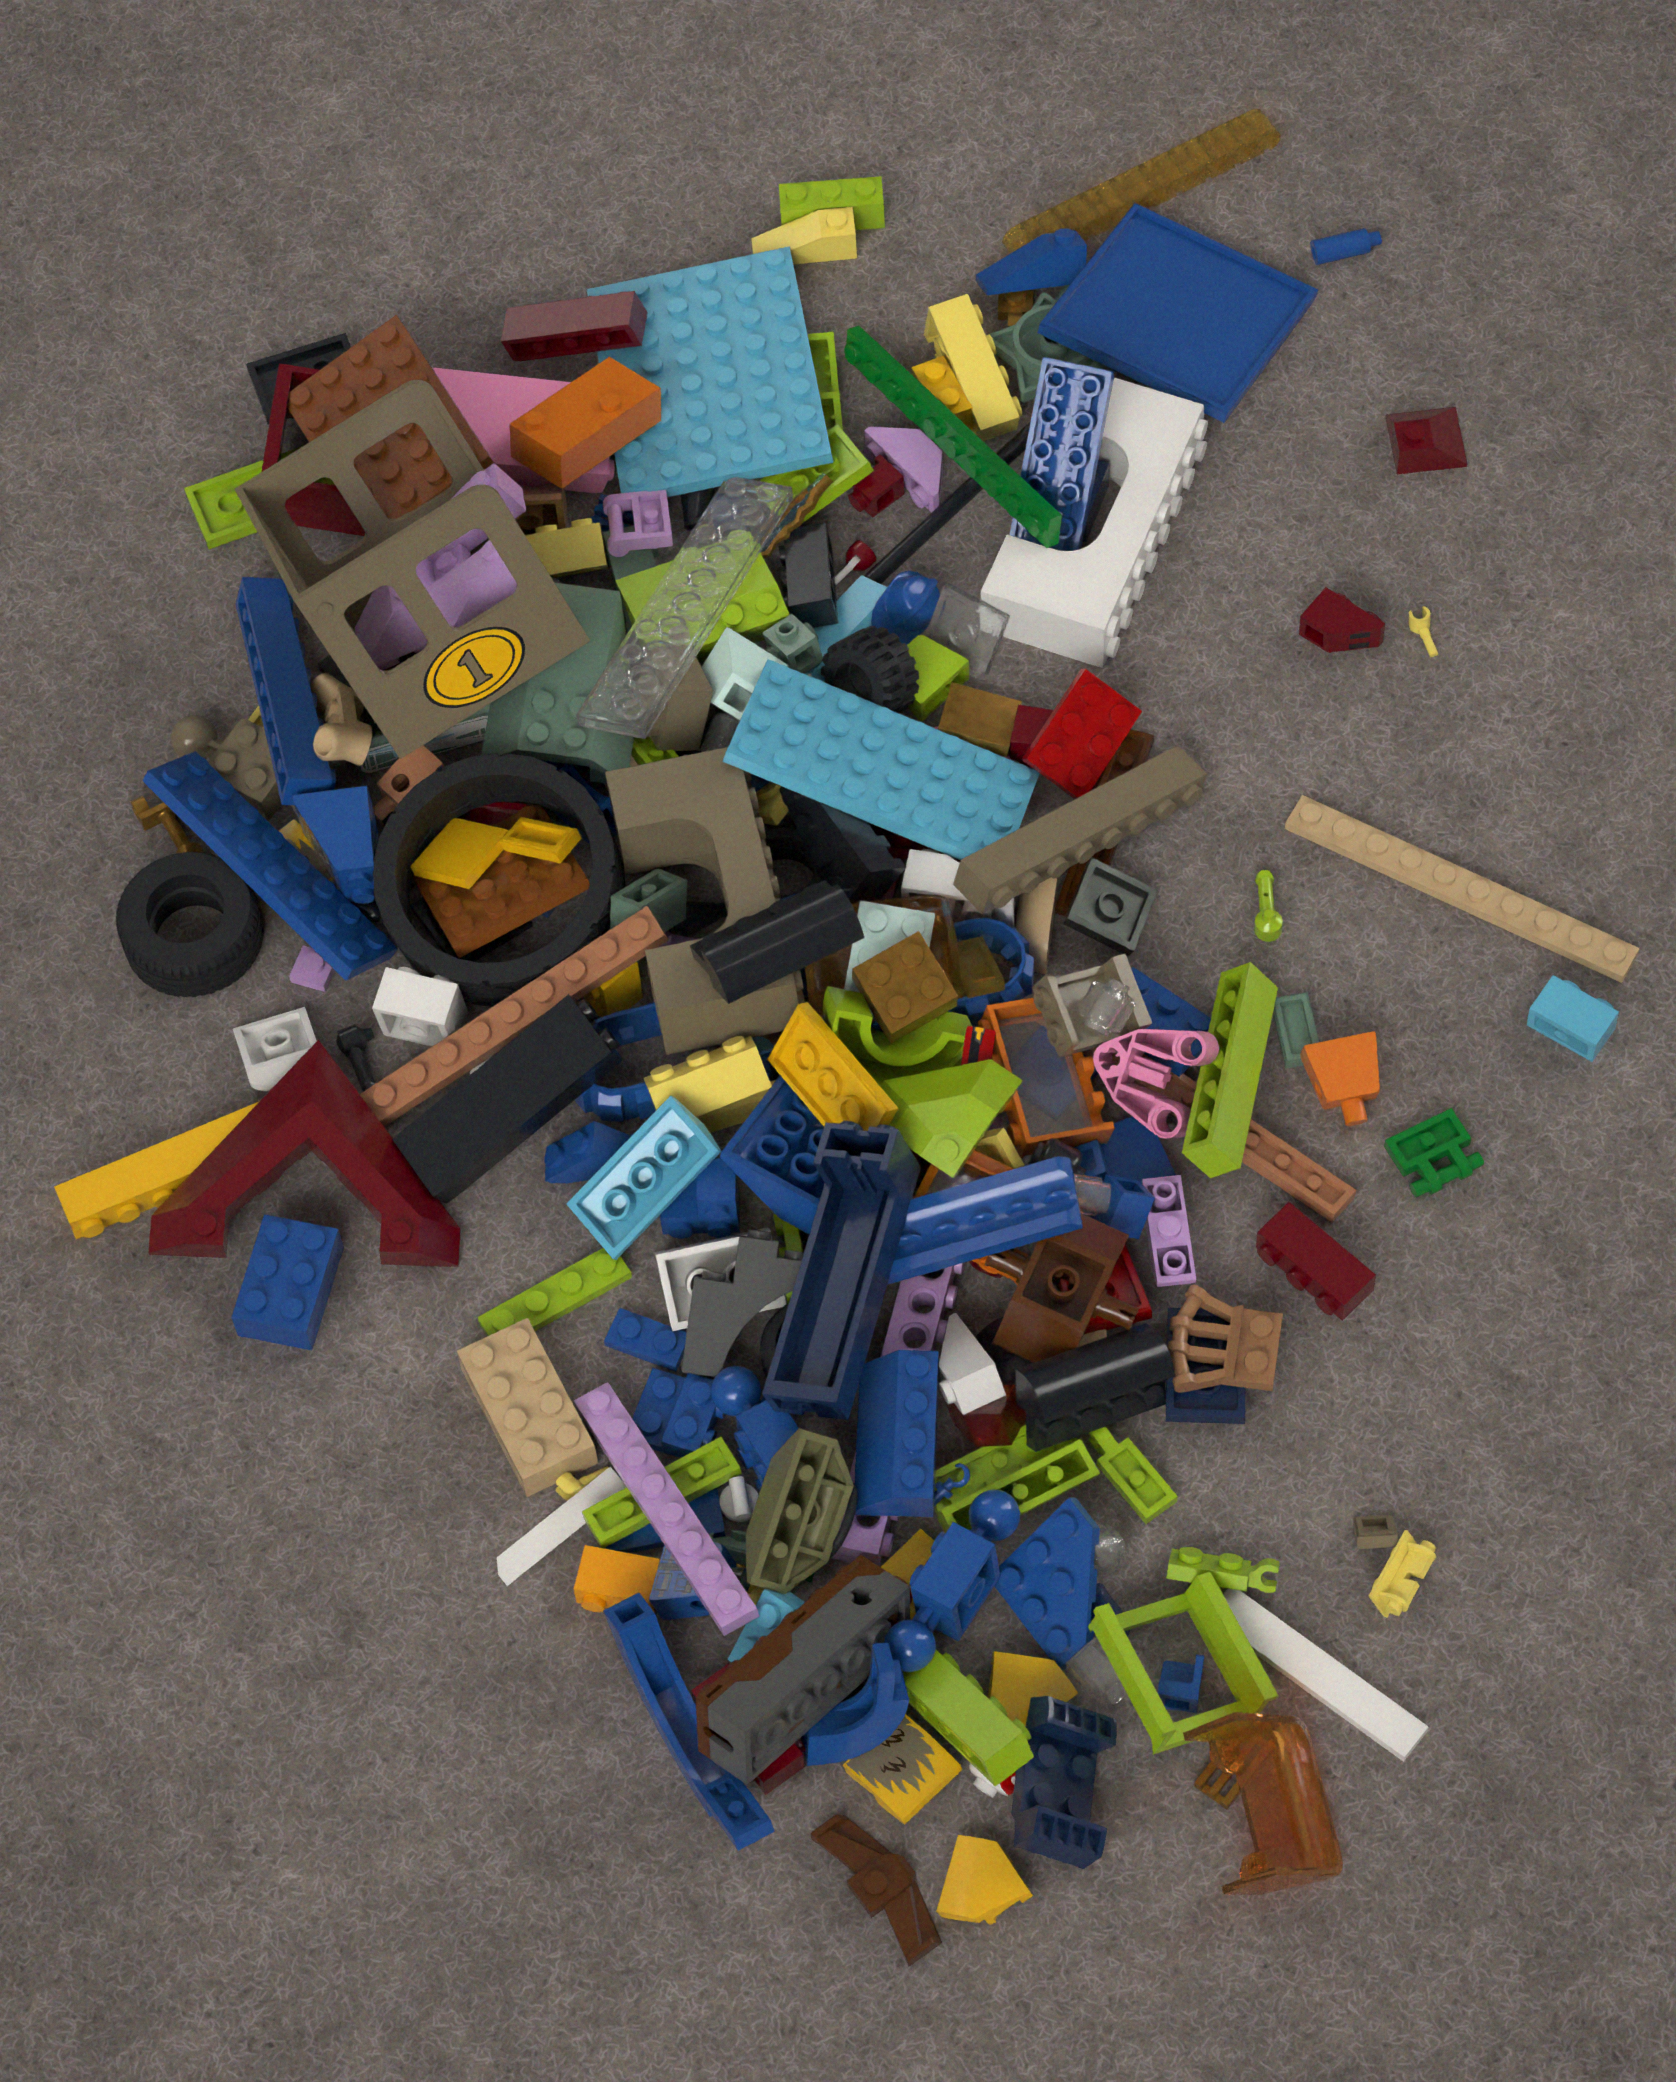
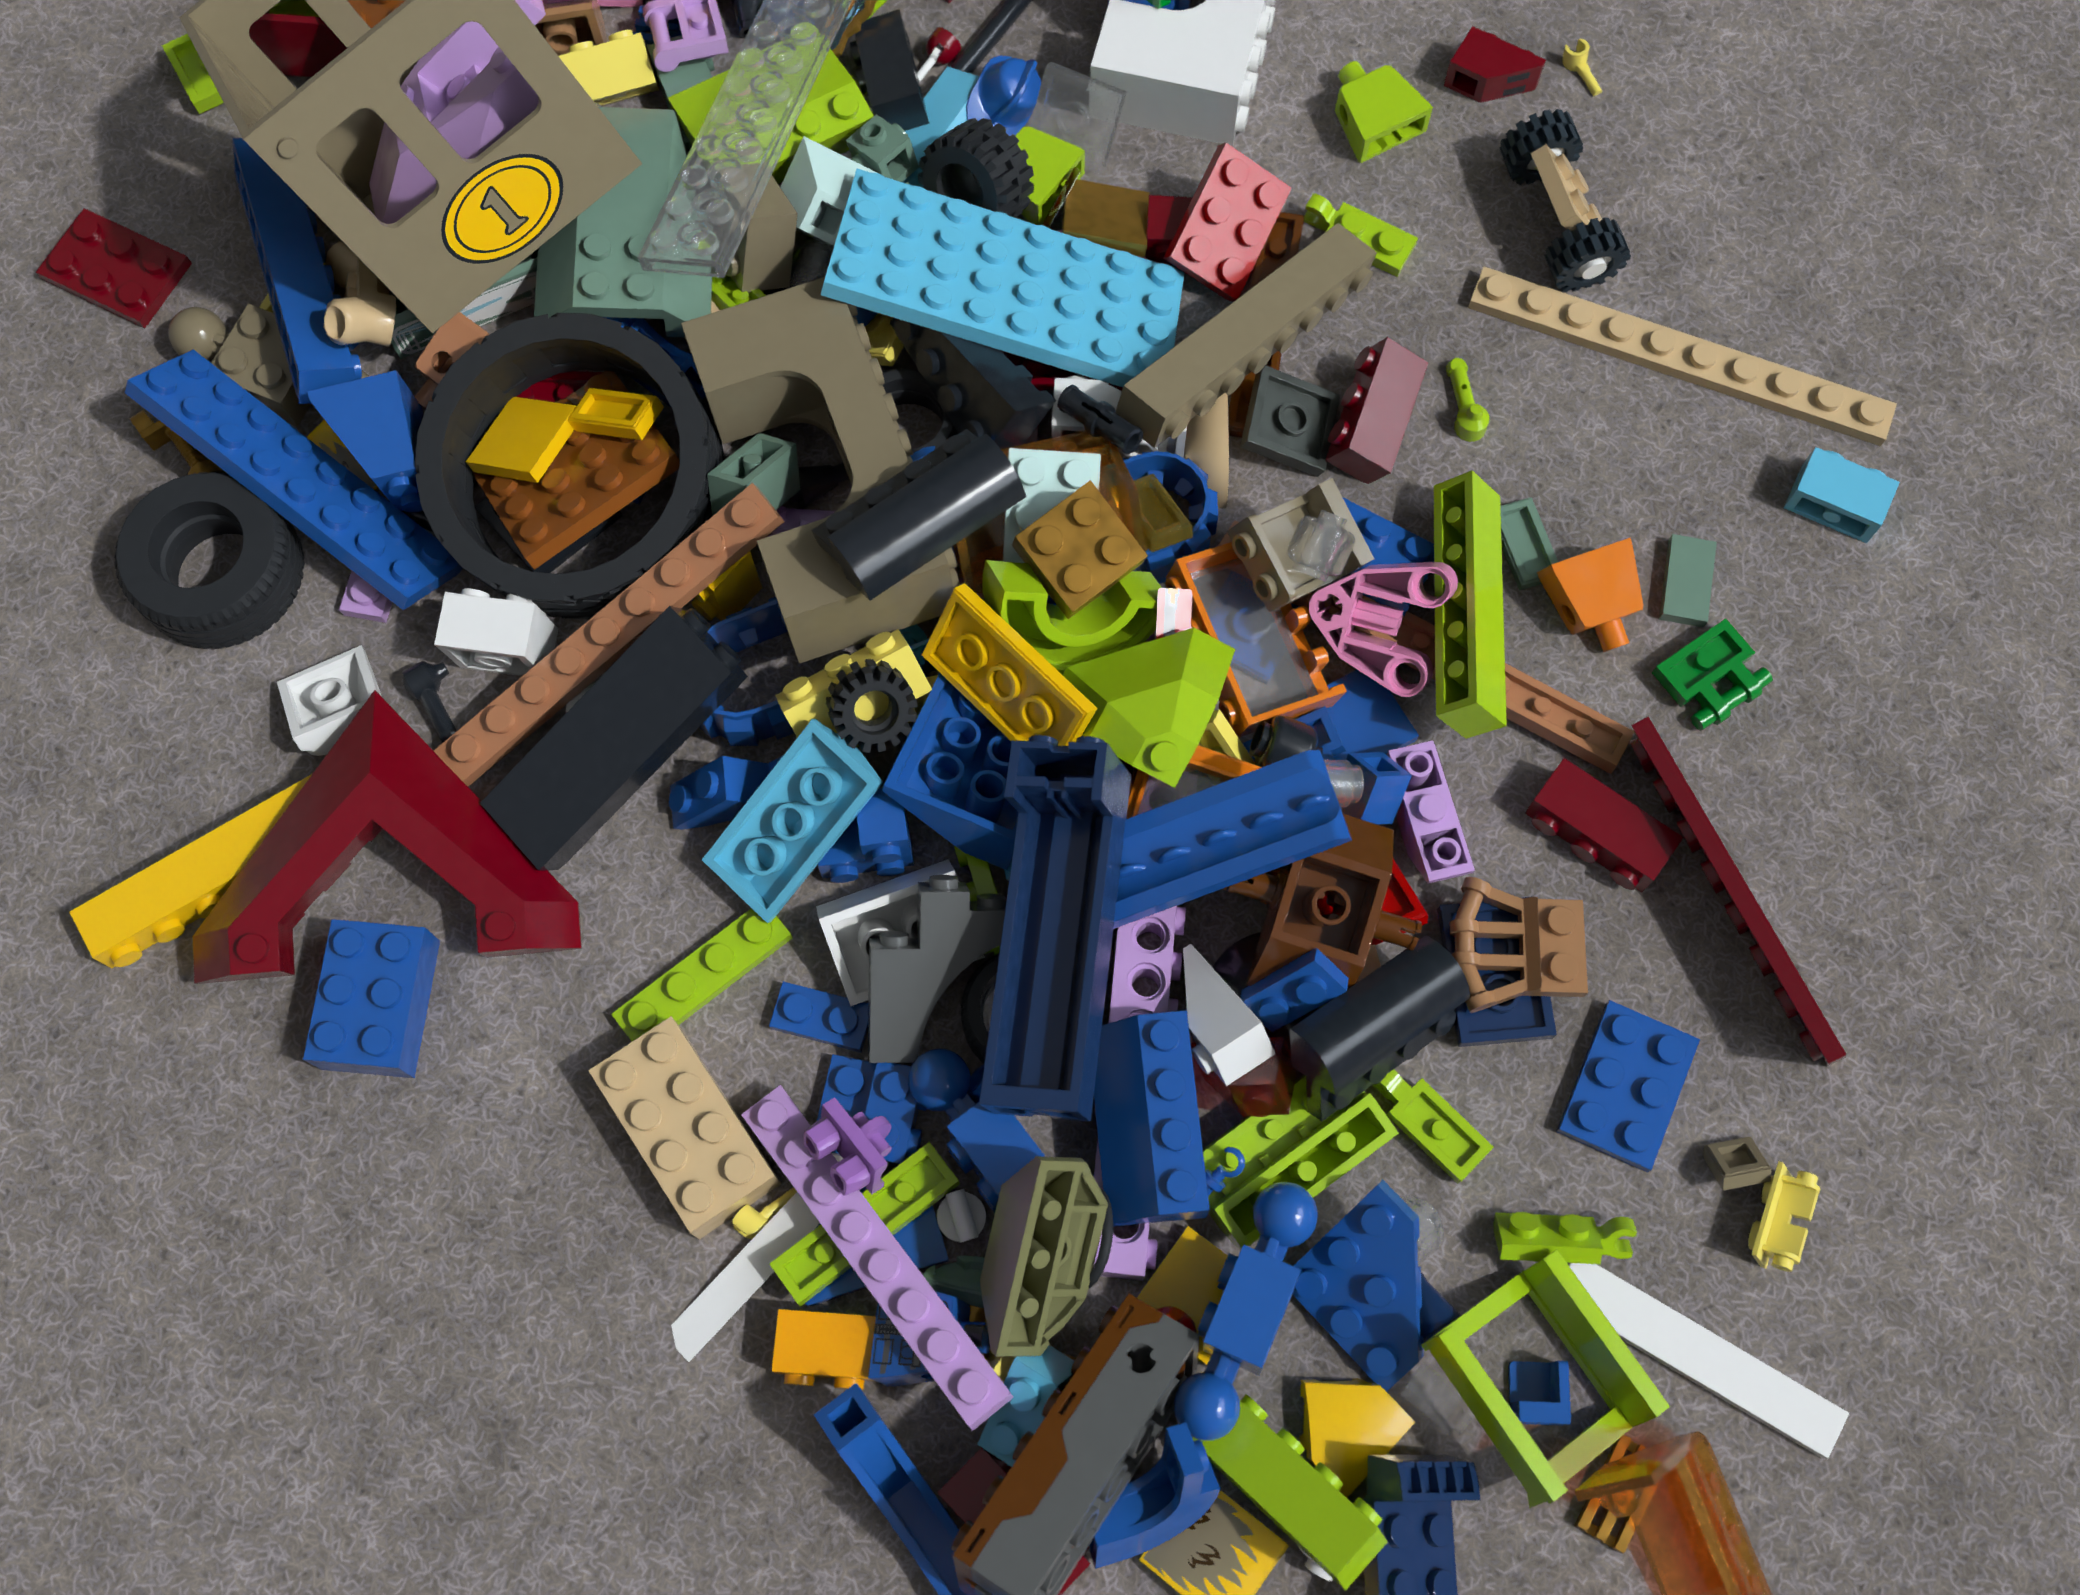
camera: 10 degrees left, 10 degrees up
(125, 674) = (114, 268): none -> dark red plate
(664, 1426) = (857, 1141): none -> medium lavender hips
(733, 1109) = (879, 730): none -> black tyre
(940, 886) = (1100, 419): none -> black pin
(942, 699) = (1061, 197): none -> sticker
(1028, 1345) = (1295, 990): none -> blue plate
(1183, 905) = (1376, 410): none -> brick
(1222, 767) = (1389, 242): none -> lime plate
(1234, 651) = (1379, 109): none -> lime torso
(1299, 1466) = (1628, 1086): none -> blue plate
(1393, 785) = (1590, 244): none -> black plate
(1414, 1328) = (1743, 908): none -> dark red plate
(1429, 1075) = (1688, 580): none -> sand green tile

